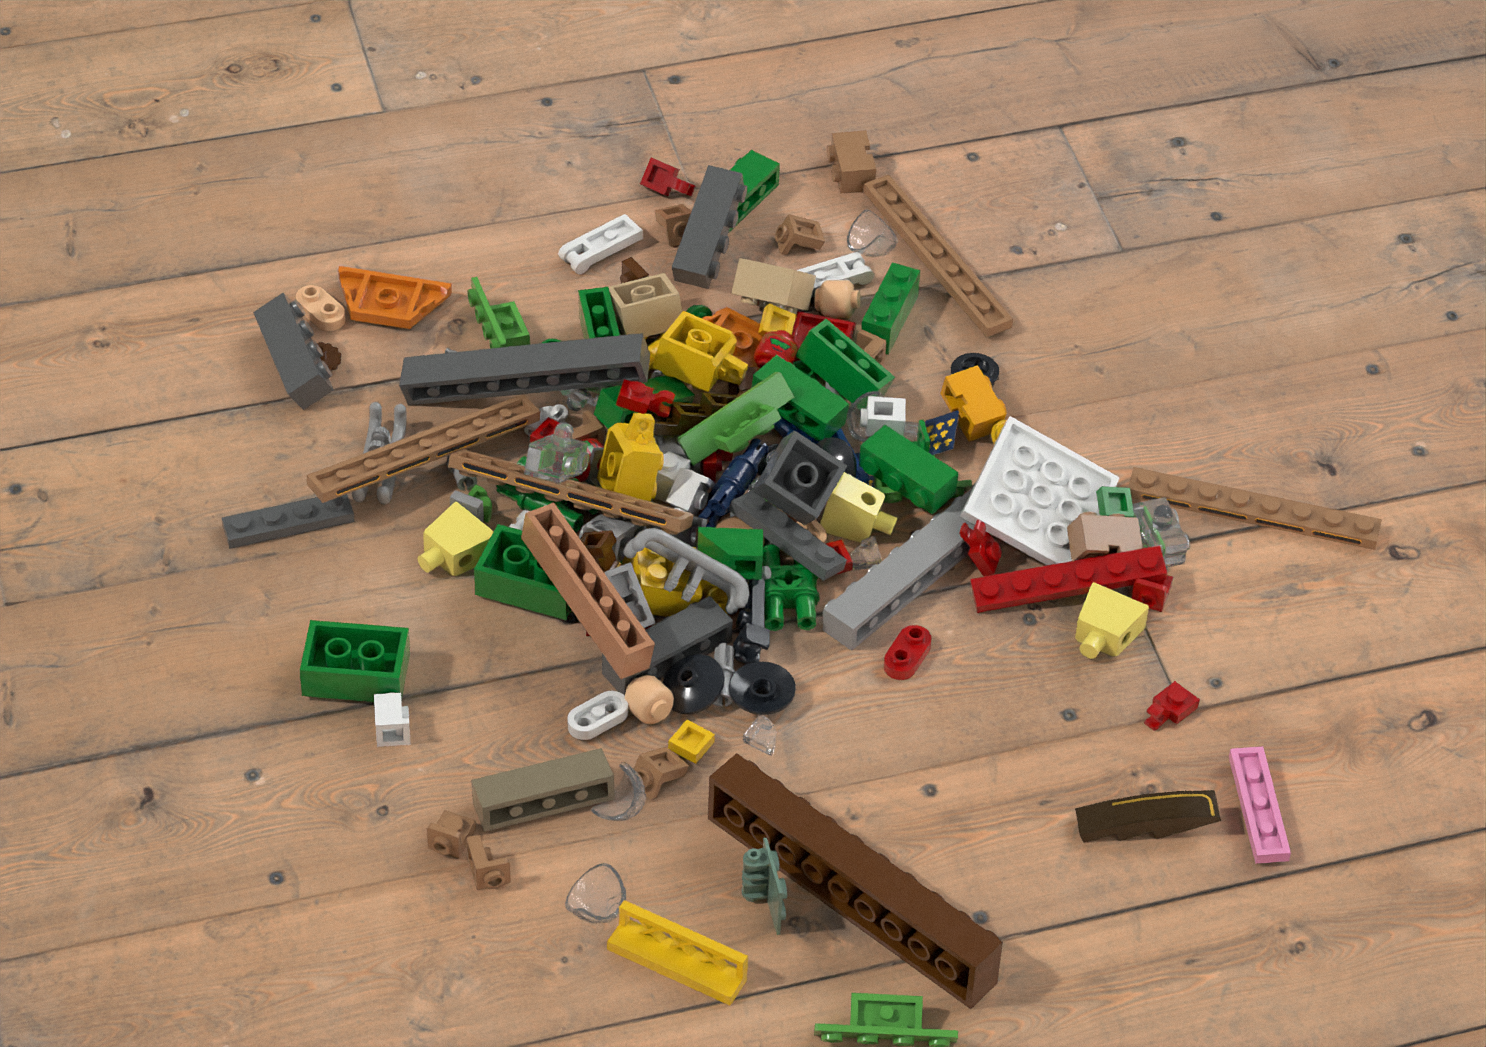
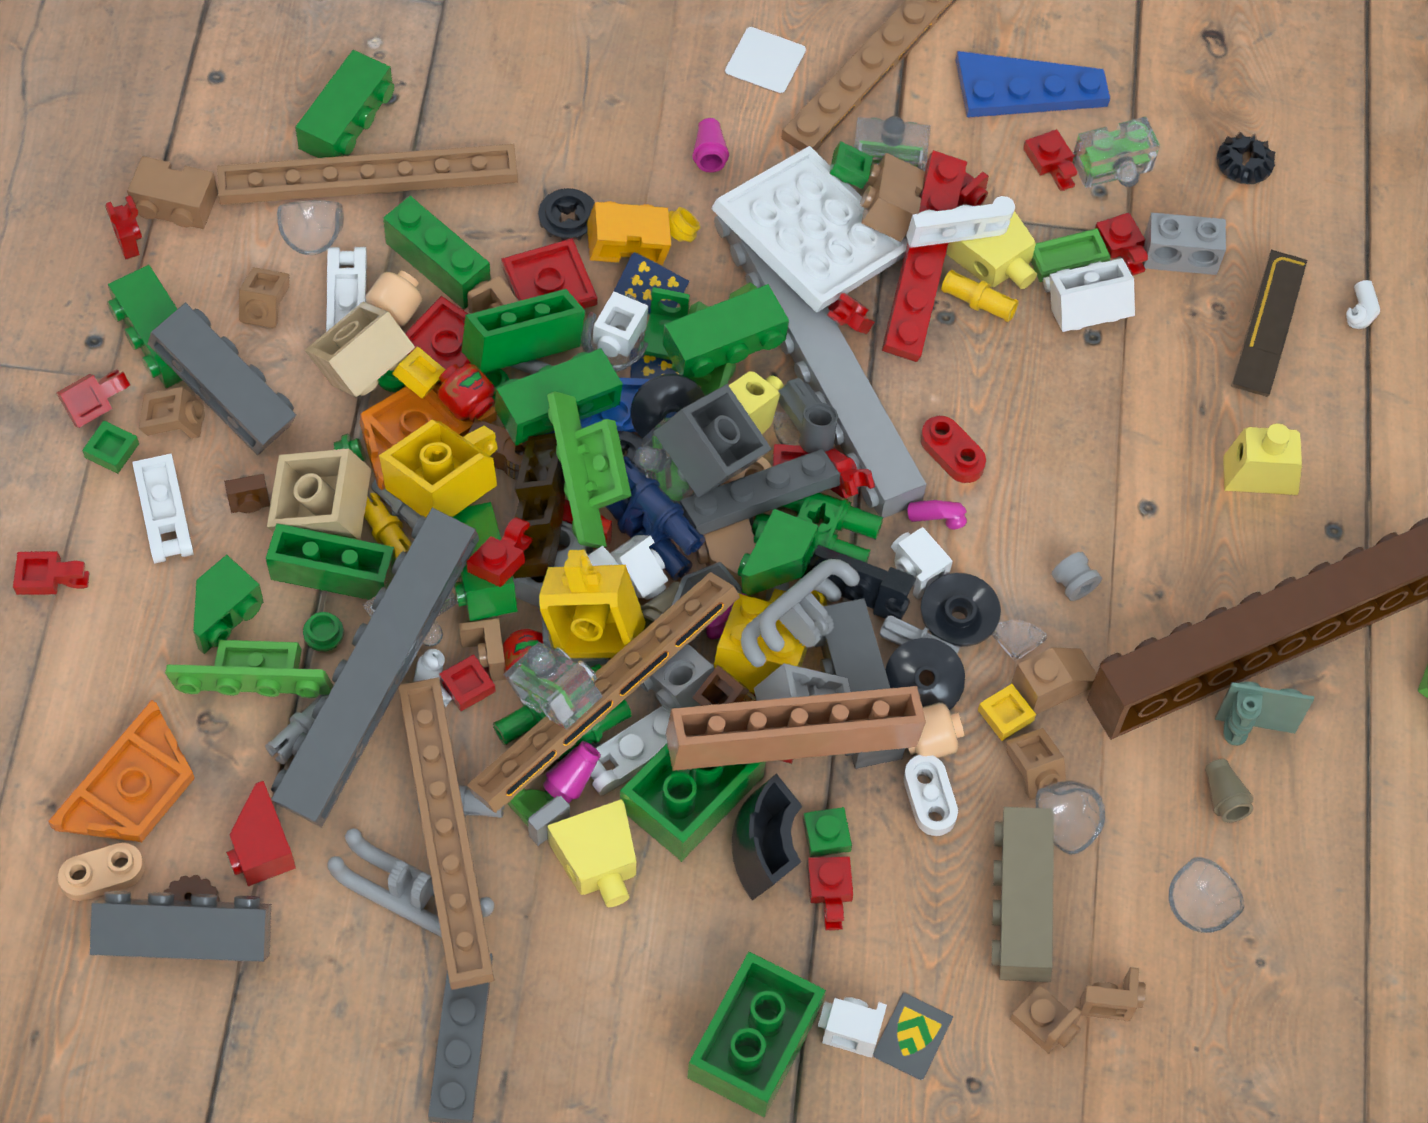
camera: 70 degrees left, 15 degrees up
(376, 370) = (259, 840): none -> red slope
(404, 764) = (912, 1036): none -> dark grey sticker
(497, 680) = (832, 885): none -> red plate
(506, 507) = (572, 772): none -> dark pink cone
(509, 621) = (763, 837): none -> black brick
(519, 203) = (42, 572): none -> red plate
(539, 668) = (827, 832): none -> green plate
(543, 293) = (223, 601): none -> green slope
(632, 202) = (110, 447): none -> green plate
(677, 956) = (1306, 842): yellow fence -> none
(693, 895) = (1228, 793): none -> dark tan cone
(725, 743) = (1053, 677): none -> medium nougat slope
(792, 651) = (922, 558): none -> white brick
(806, 146) = (125, 226): none -> red plate
(832, 751) = (1076, 576): none -> light grey wheel
(834, 581) = (849, 474): none -> red plate
(841, 650) = (936, 509): none -> dark pink arm
(872, 547) = (810, 416): none -> dark grey piece
(915, 377) = (548, 271): none -> red plate
(985, 222) = (345, 107): none -> green brick
(1003, 830) = (1264, 461): none -> light yellow torso
(1056, 627) = (979, 295): none -> yellow pin
(1087, 430) = (710, 147): none -> dark pink cone
(1095, 575) = (960, 223): none -> white plate
(1096, 688) = (1091, 294): none -> white brick
(1134, 675) = (1069, 253): none -> bright green tile
(1188, 738) = (1185, 243): none -> light grey brick
(1200, 444) = (765, 60): none -> white sticker
(1208, 884) = (1367, 307): none -> white arm
(1224, 638) = (1052, 155): none -> red plate
(1248, 673) = (1117, 154): none -> clear piece
(1259, 805) = (1286, 222): bright pink plate -> none
(1284, 604) = (1018, 86): none -> blue wing
(1300, 772) = (1231, 154): none -> black gear

